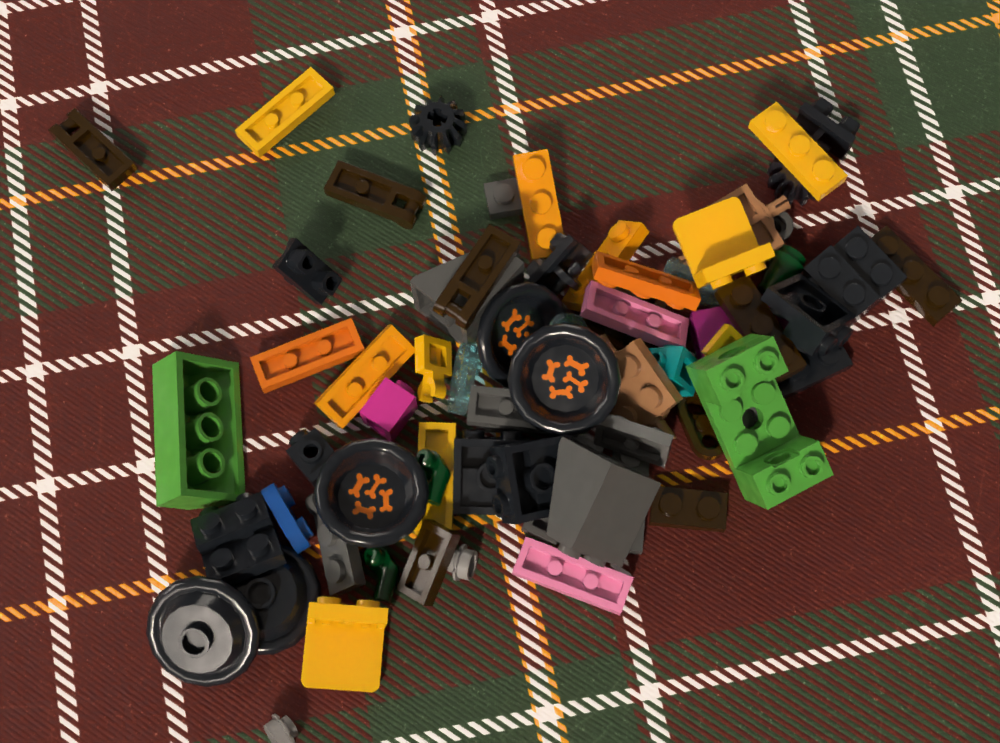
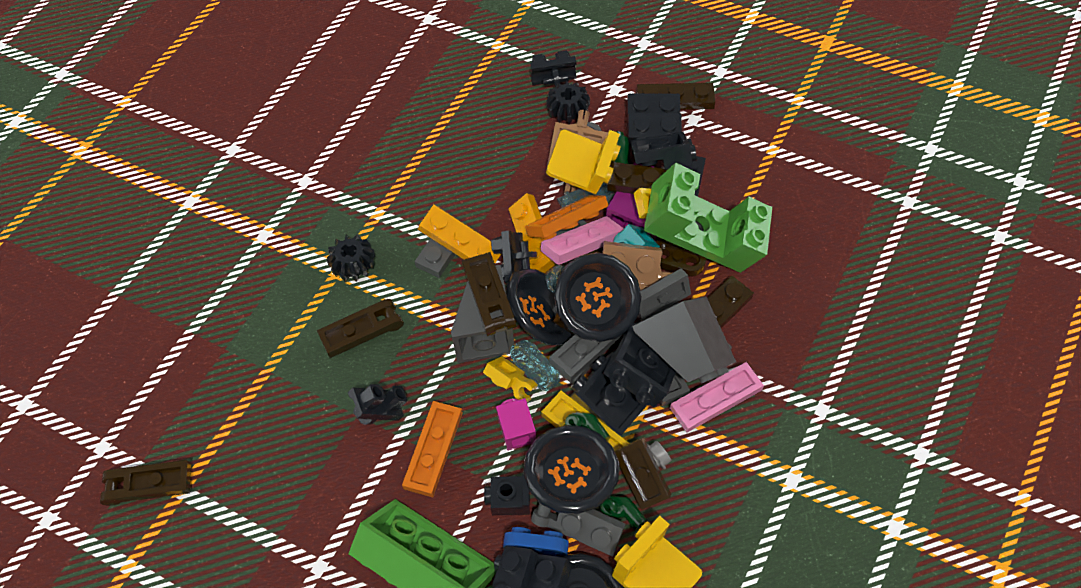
camera: 50 degrees left, 10 degrees down
(285, 112) = (248, 340): yellow plate -> none
(364, 375) = (480, 423): light orange plate -> none
(797, 151) = (557, 86): yellow plate -> none

